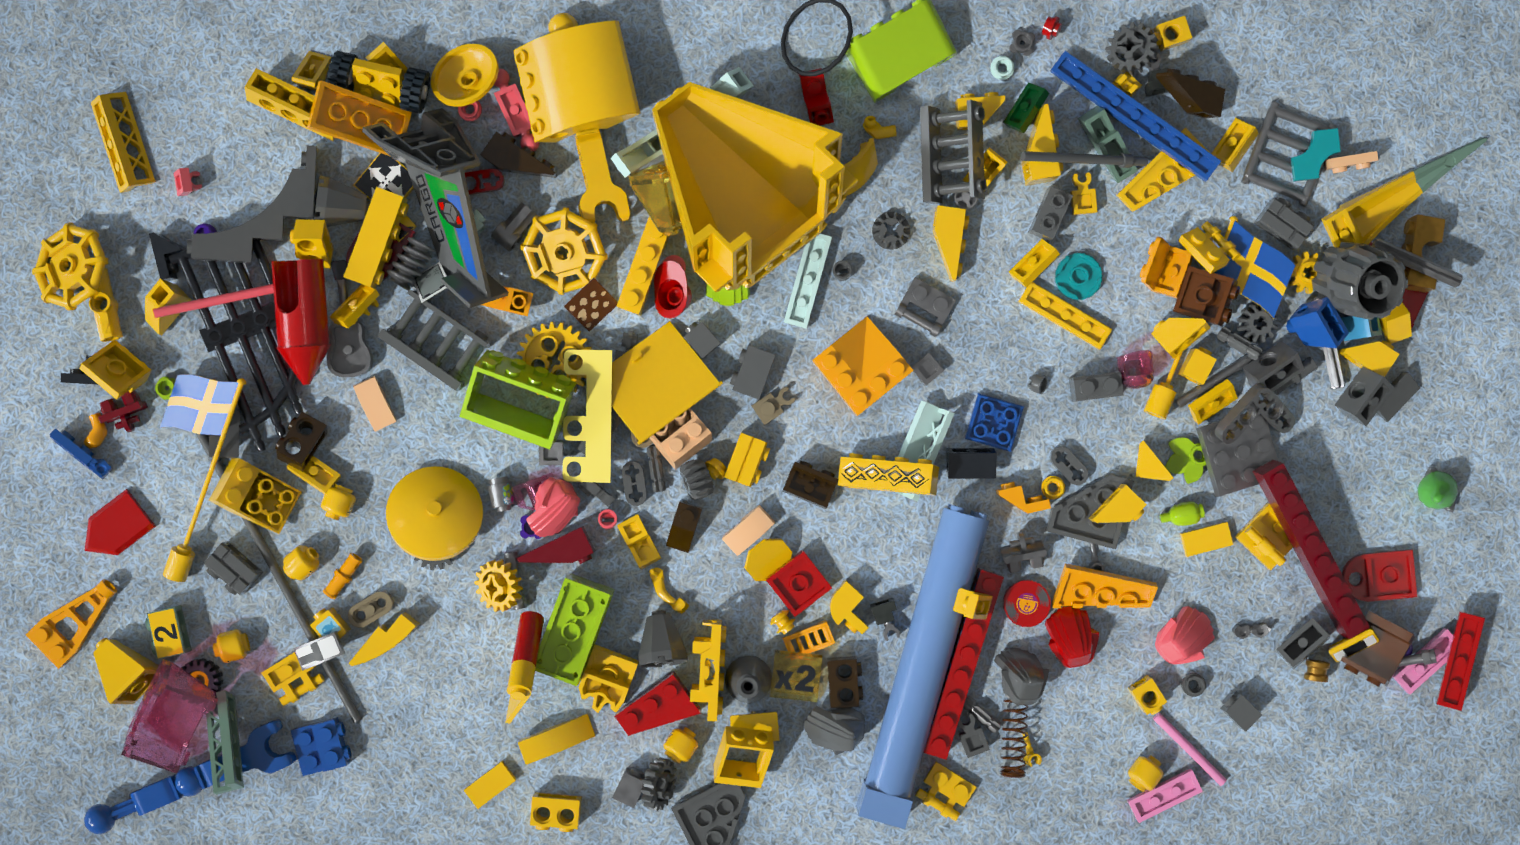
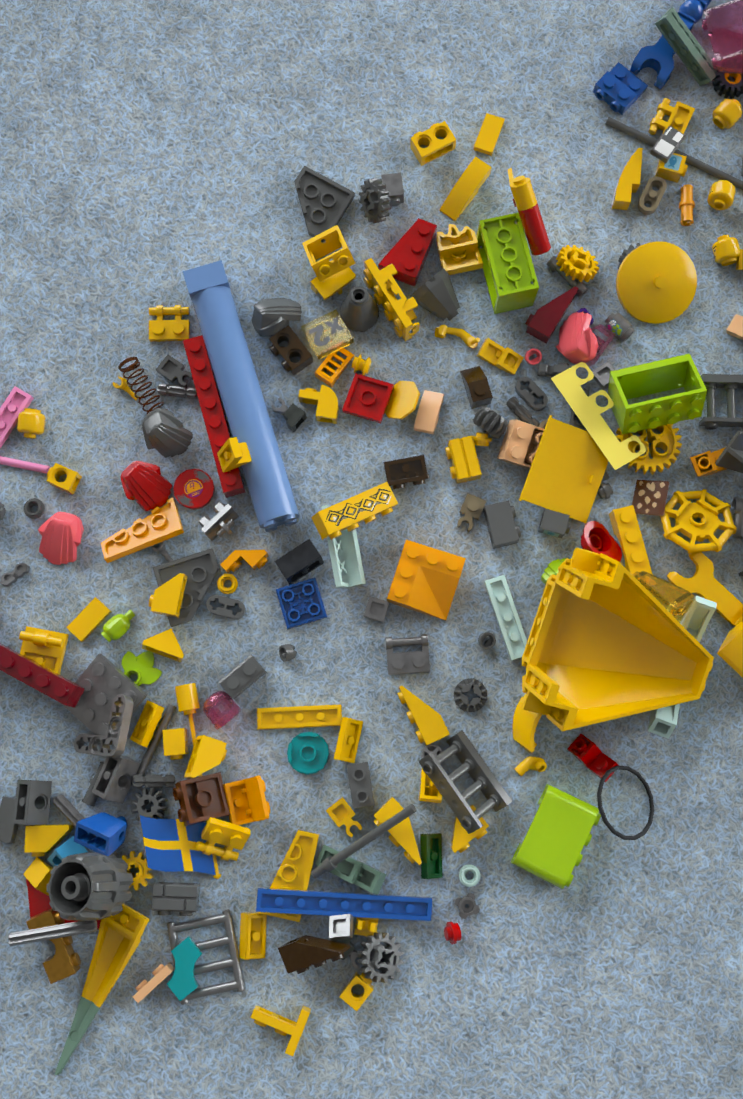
camera: 145 degrees right, 10 degrees down
(680, 745) = (376, 237): yellow head -> none
(1152, 97) = (341, 927): none -> plate
(1257, 48) = (283, 1025): none -> yellow bracket

